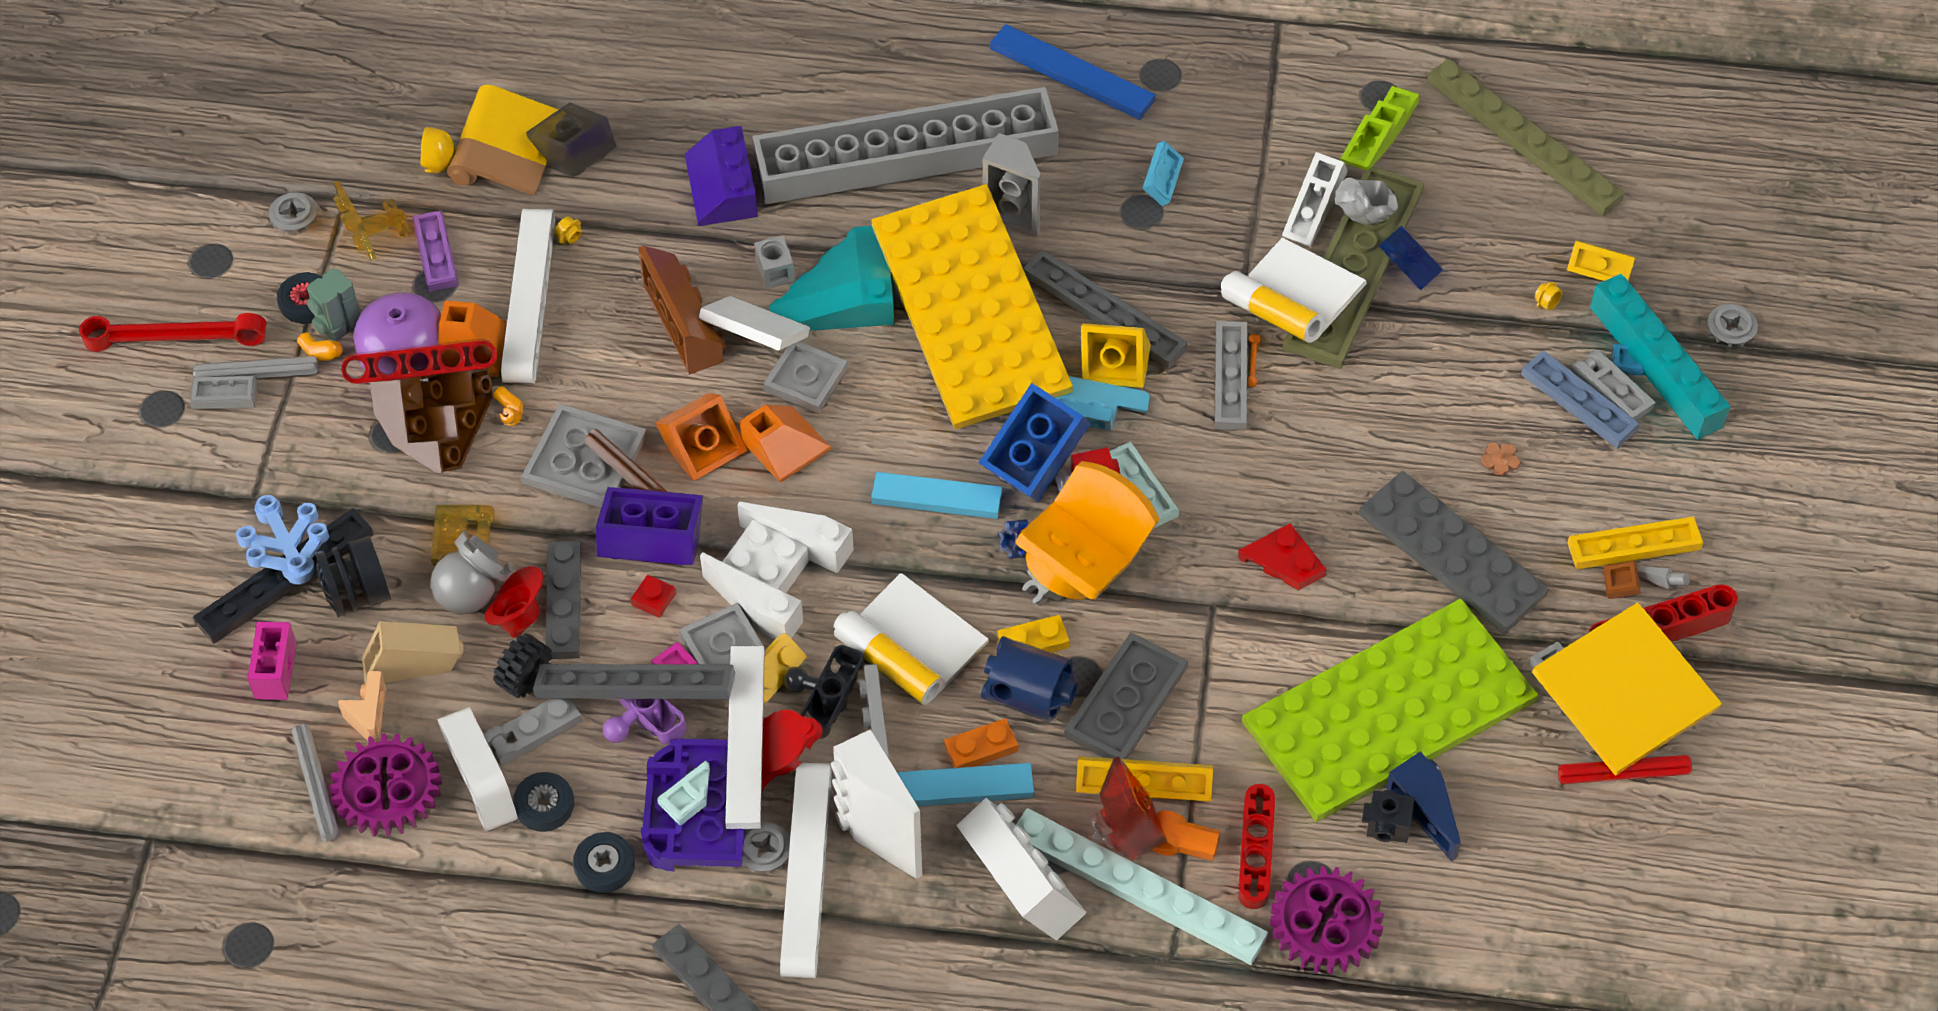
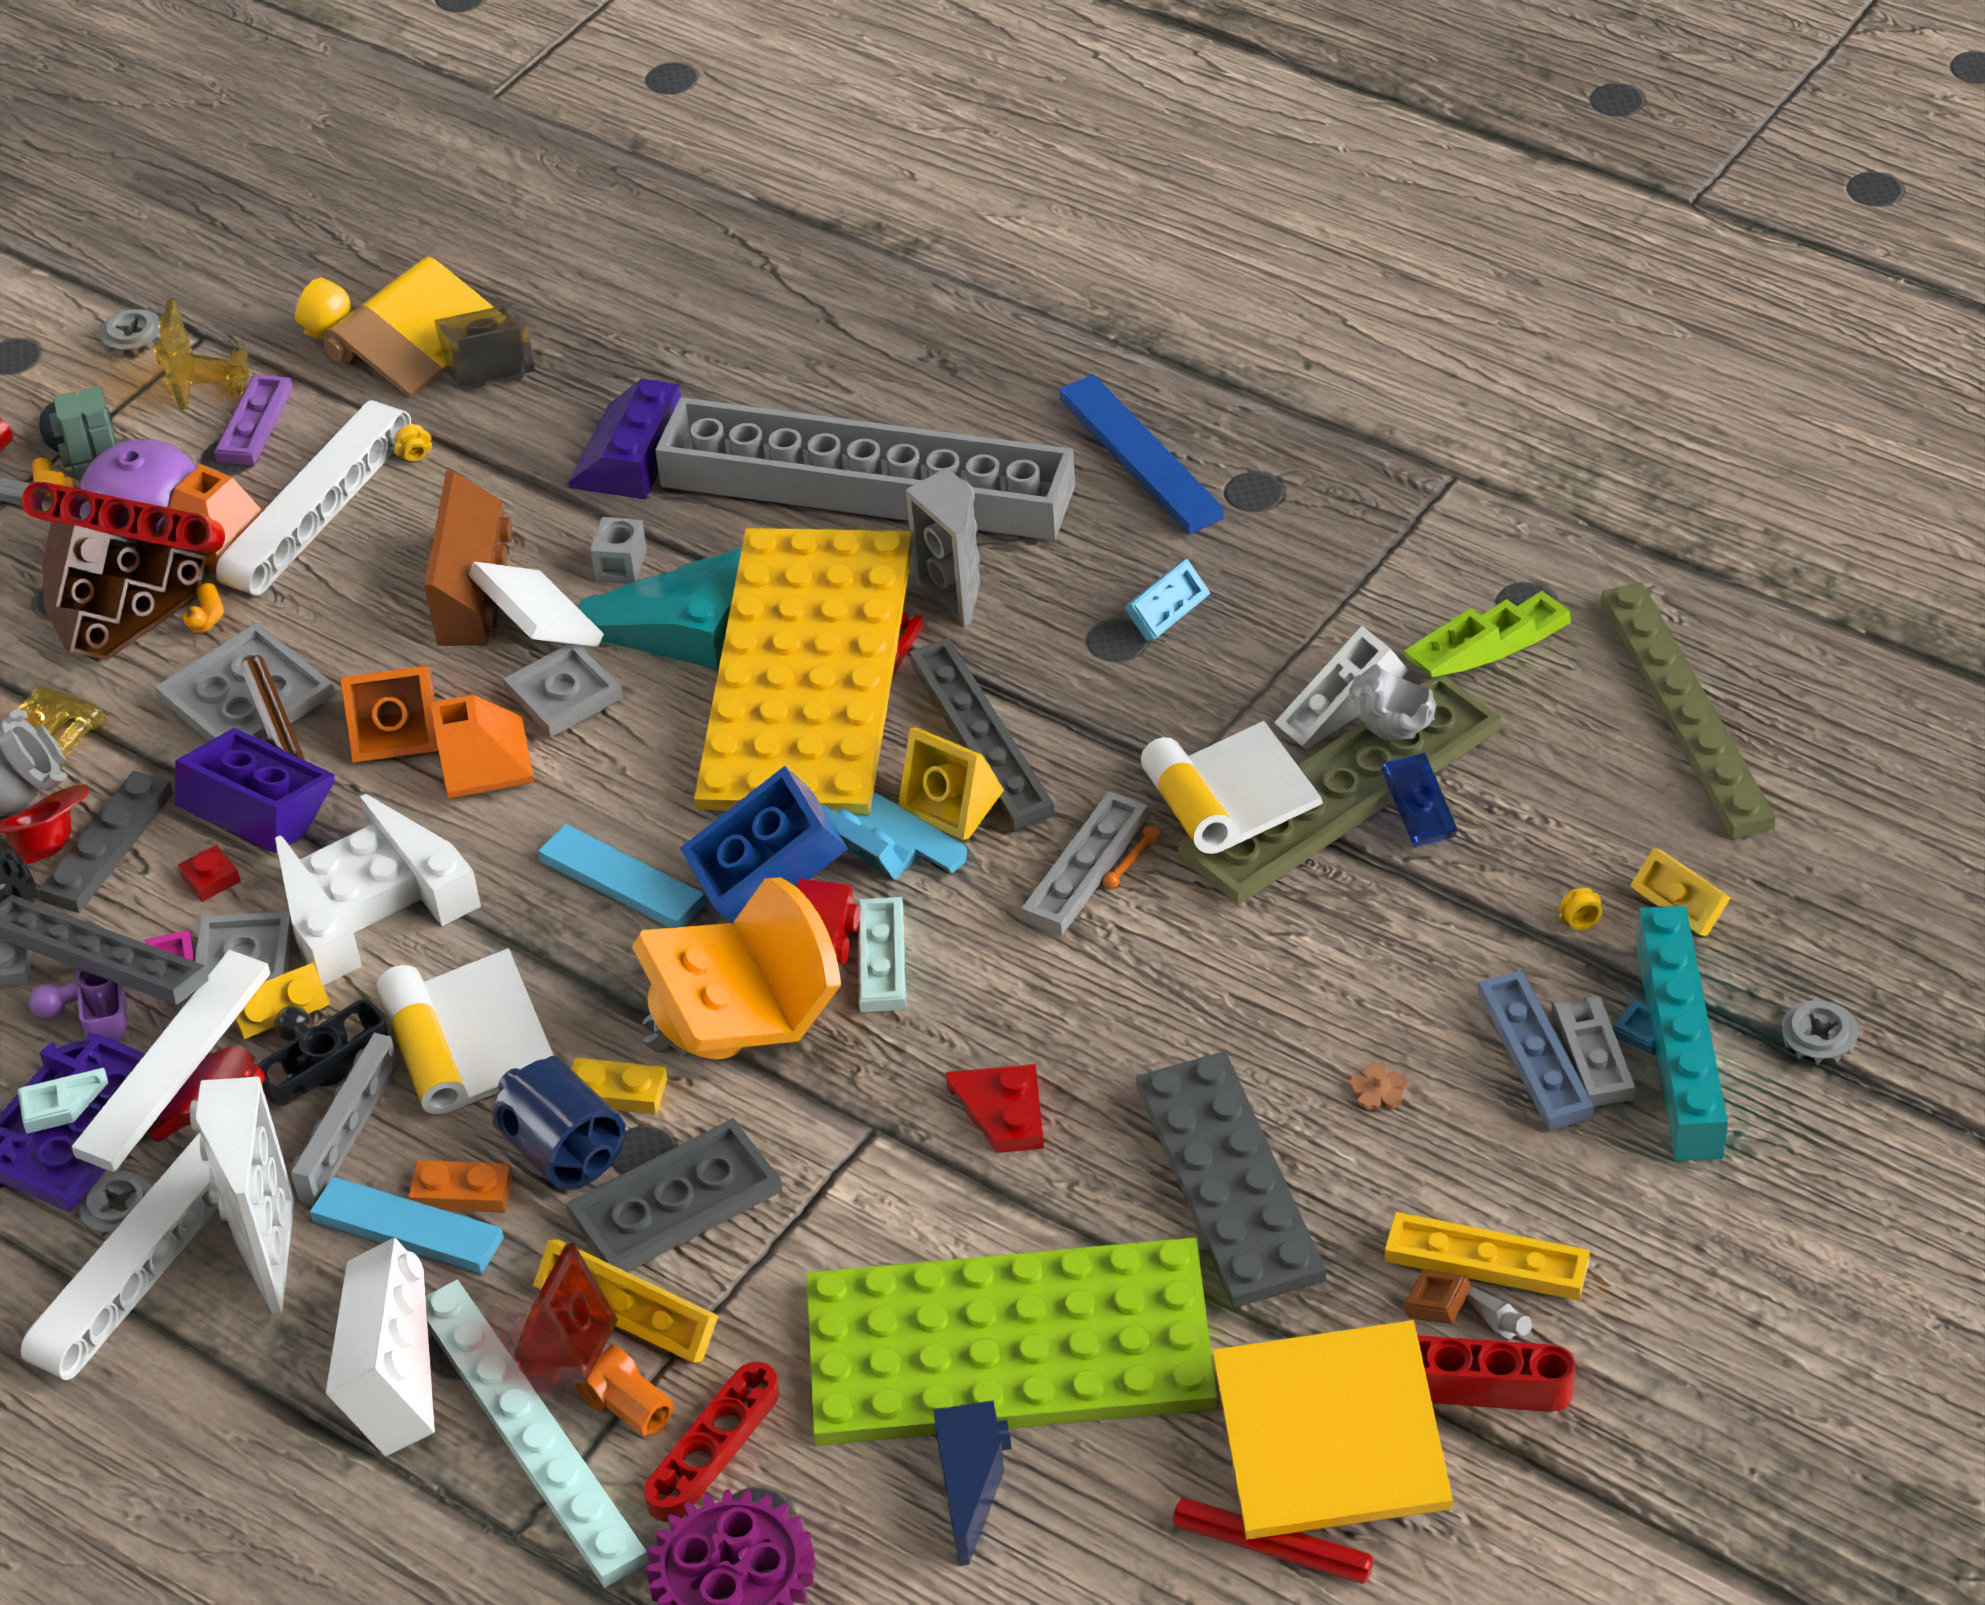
camera: 30 degrees right, 10 degrees down
(1388, 816) = (901, 1468): black brick -> none

